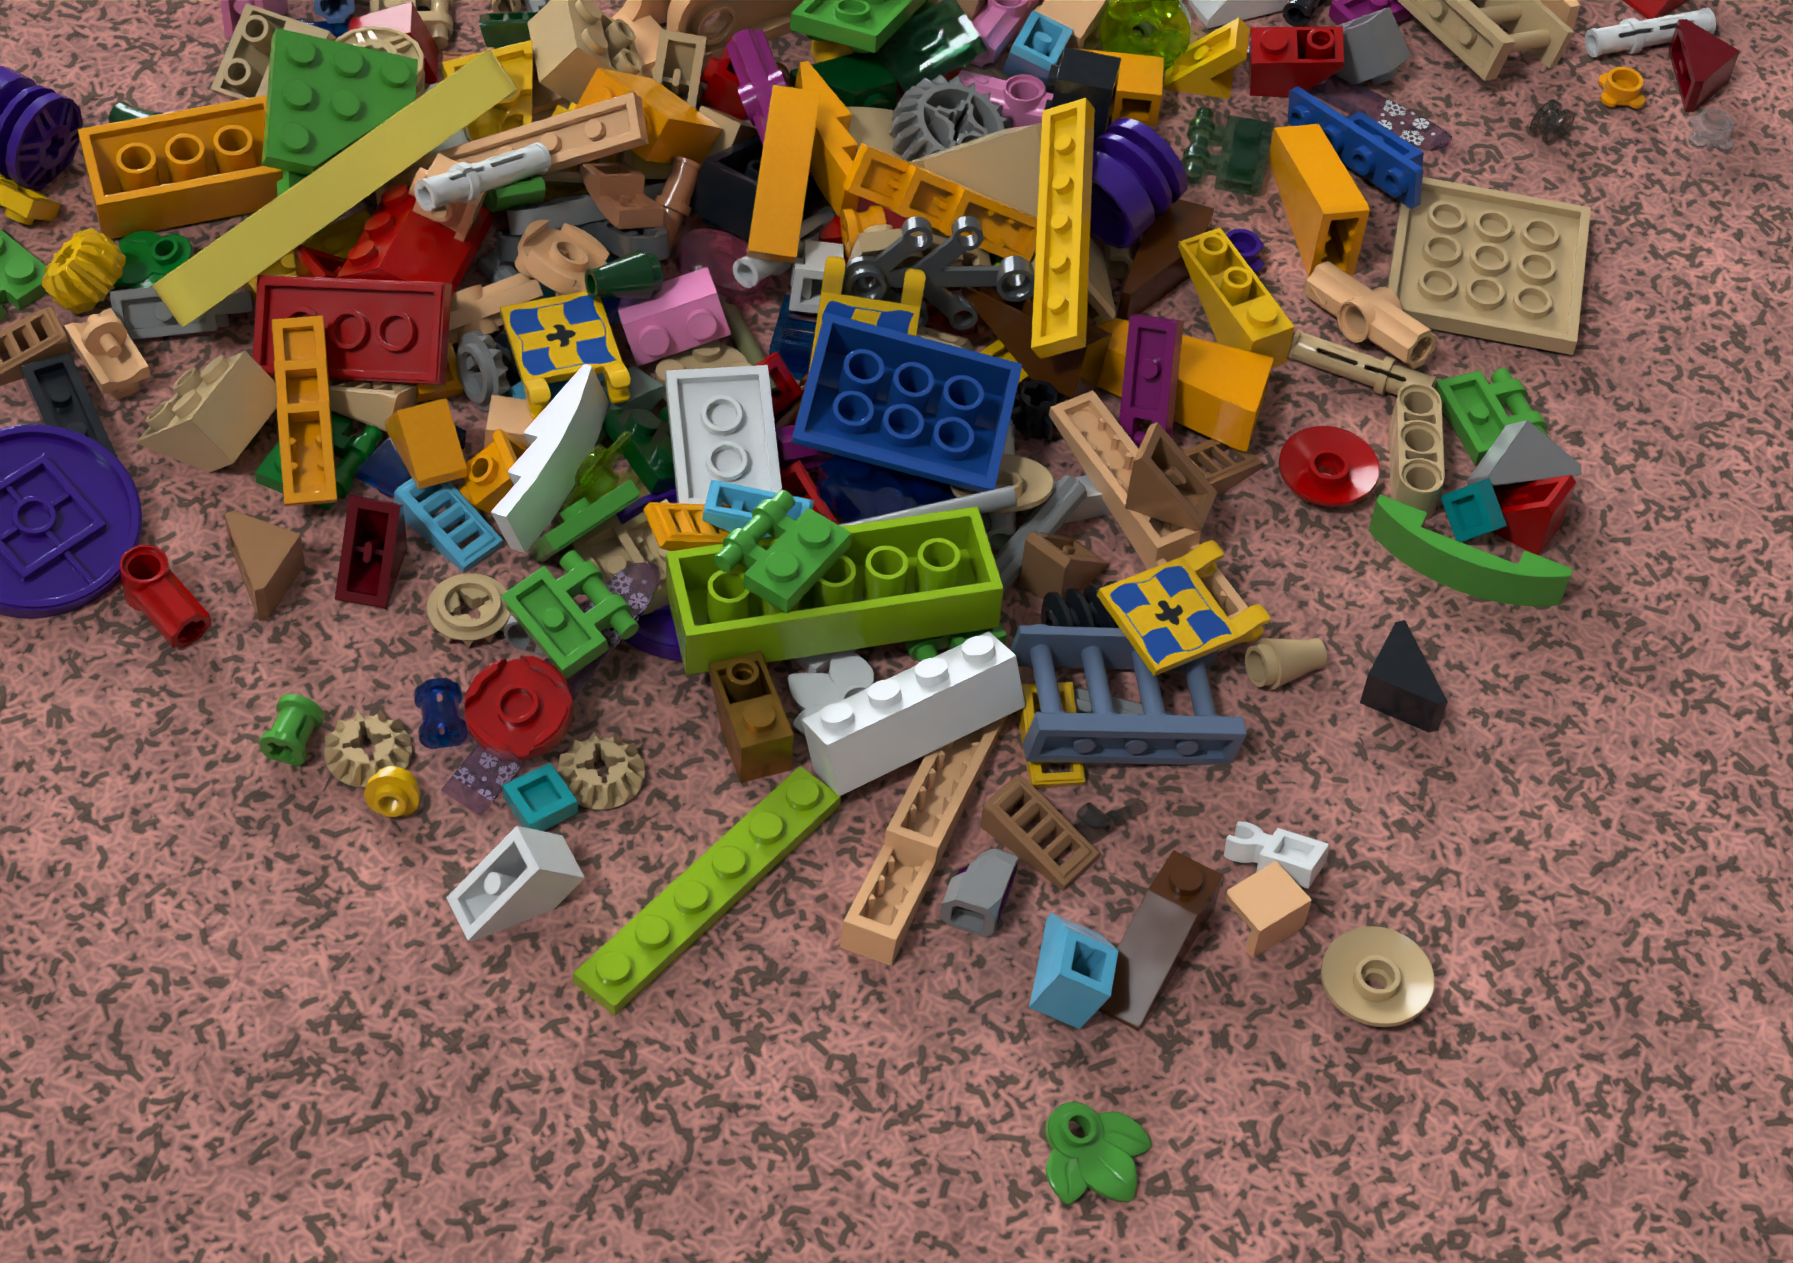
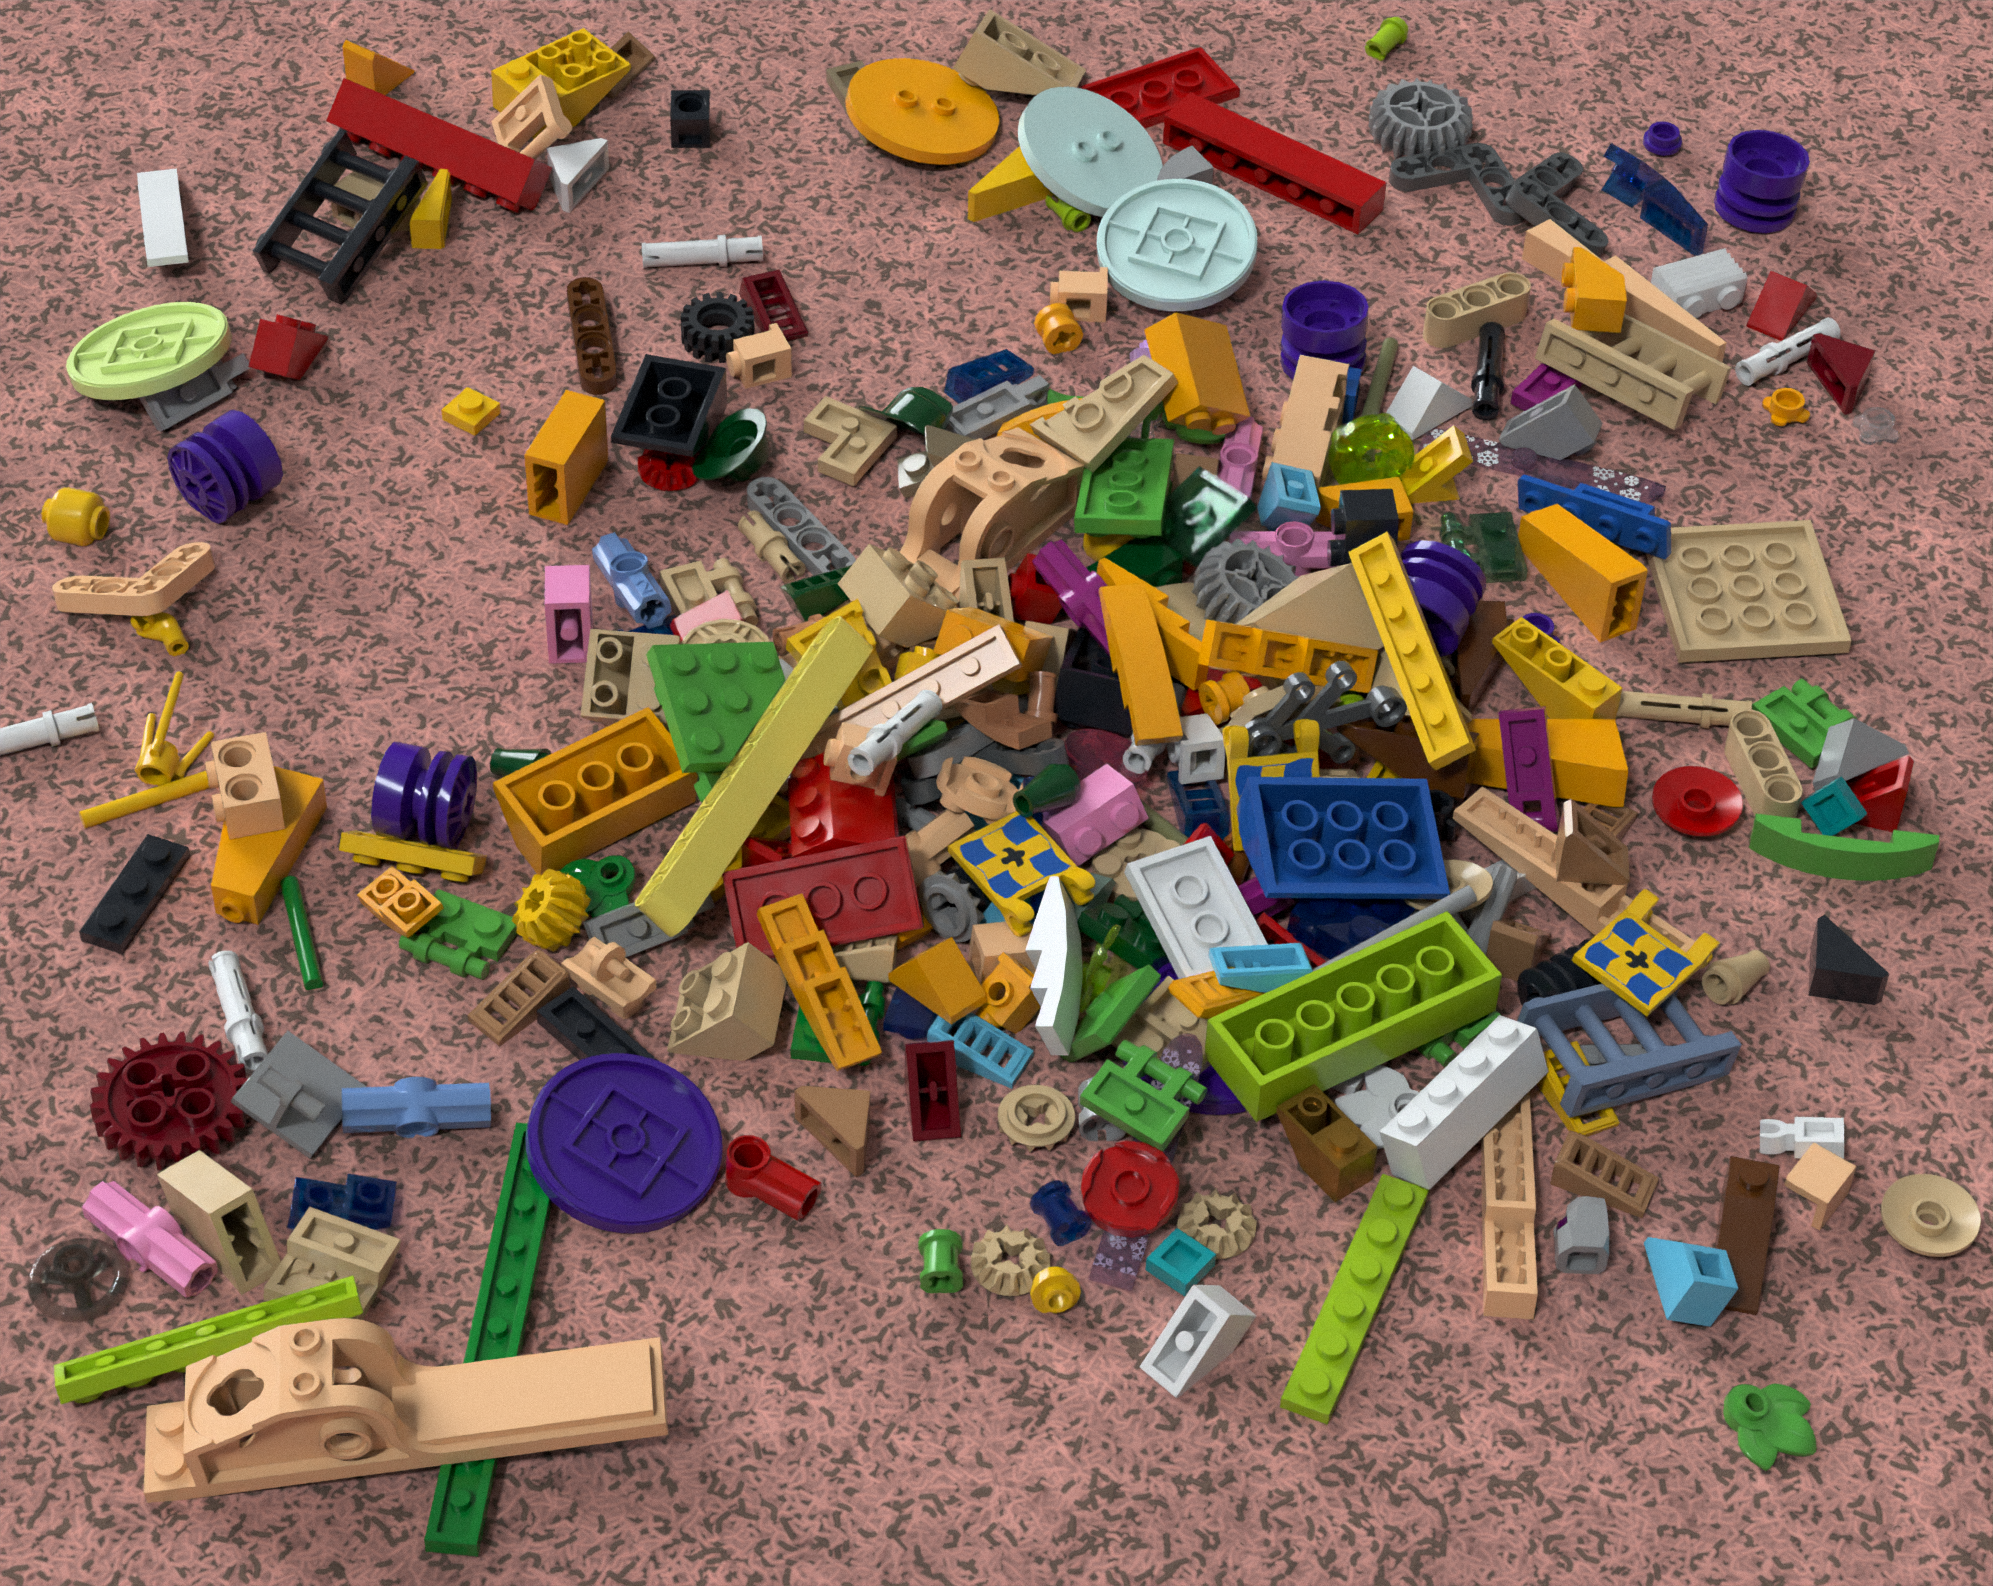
camera: 15 degrees left, 5 degrees down
(794, 561) = (1323, 993): bright green plate -> none
(1097, 825) = (1645, 1153): clear smoke hand -> none
(1292, 58) = (1508, 450): red slope -> none
(1370, 315) = (1673, 661): light nougat piece -> none
(1551, 122) = (1743, 452): clear smoke bush -> none

